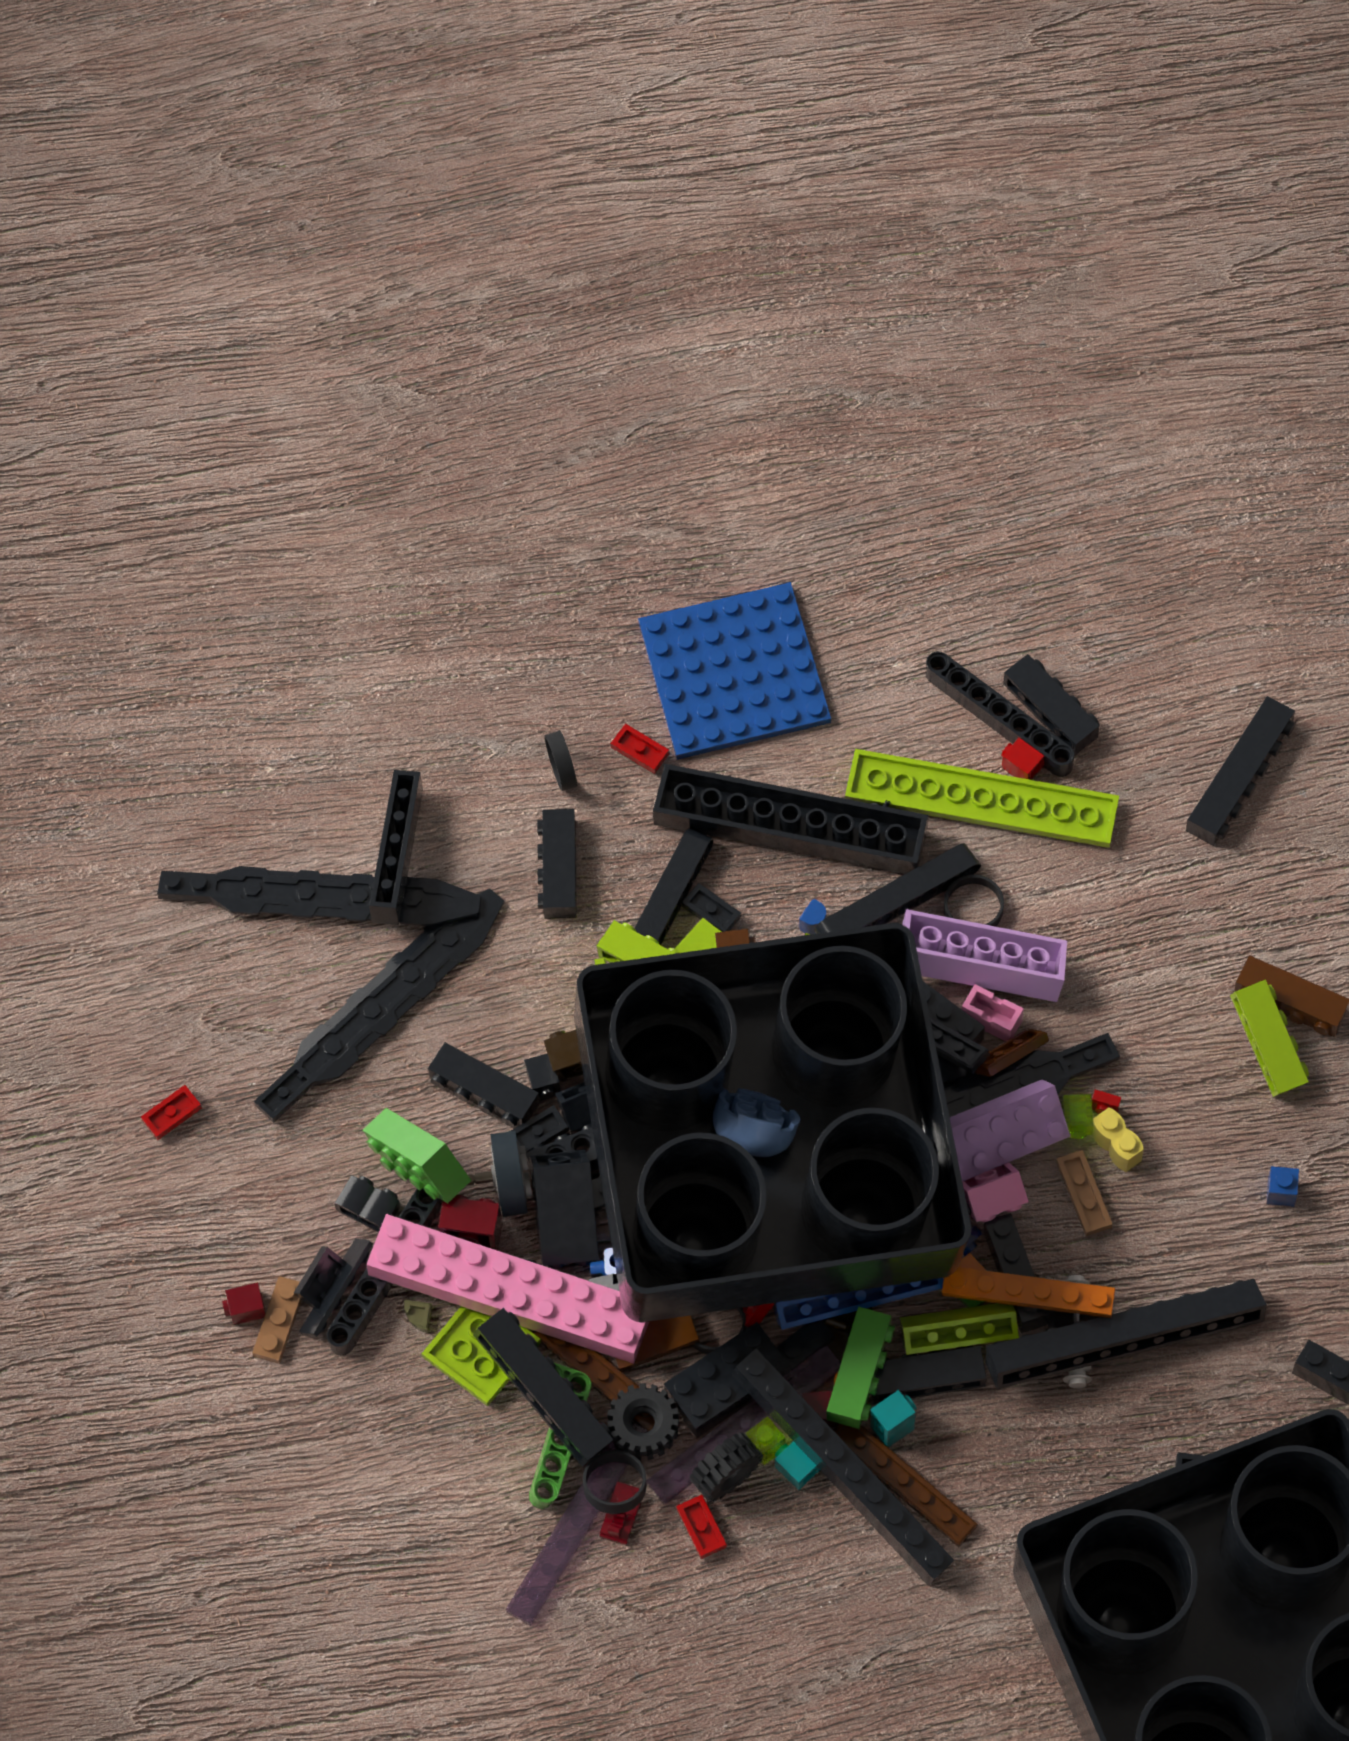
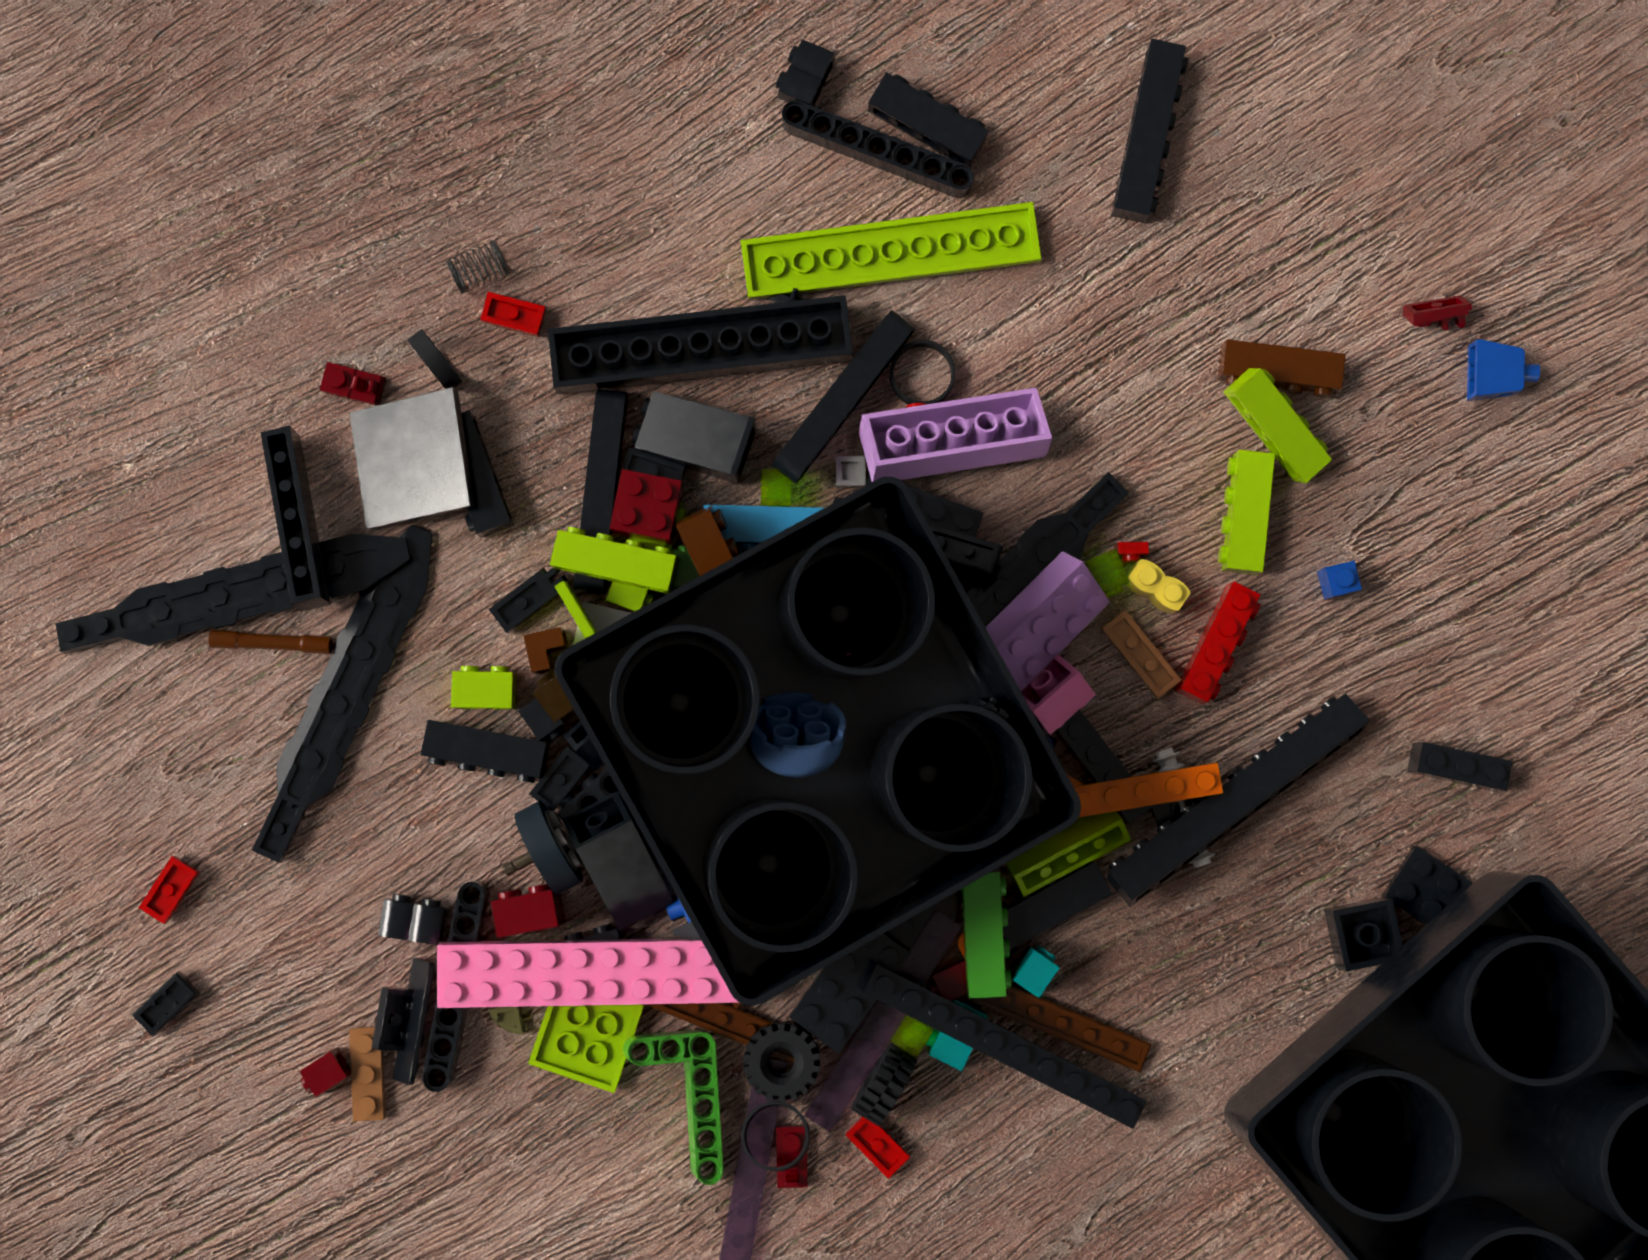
camera: 25 degrees left, 20 degrees up
(131, 1203) = (166, 1003): none -> black plate
(362, 953) = (303, 643): none -> reddish brown piece
(416, 1156) = (444, 867): bright green brick -> none
(483, 762) = (352, 384): none -> dark red plate
(500, 1037) = (483, 689): none -> lime brick
(511, 832) = (412, 458): none -> tile
(543, 1386) = (669, 1072): black brick -> none
(558, 978) = (526, 599): none -> black hinge
(561, 1016) = (539, 648): none -> reddish brown piece
(605, 712) = (457, 276): none -> dark grey piece
(694, 923) = (647, 507): none -> dark red brick
(734, 671) = (580, 190): blue plate -> none
(761, 890) = (695, 436): none -> black slope
(812, 917) = (763, 446): blue brick -> none
(961, 635) = (806, 74): none -> black brick
(997, 1015) = (985, 492): bright pink brick -> none
(1012, 1051) = (1020, 527): reddish brown tile -> none
(1022, 760) = (918, 194): red brick -> none
(1156, 1202) = (1217, 643): none -> red brick
(1219, 1106) = (1247, 512): none -> lime brick

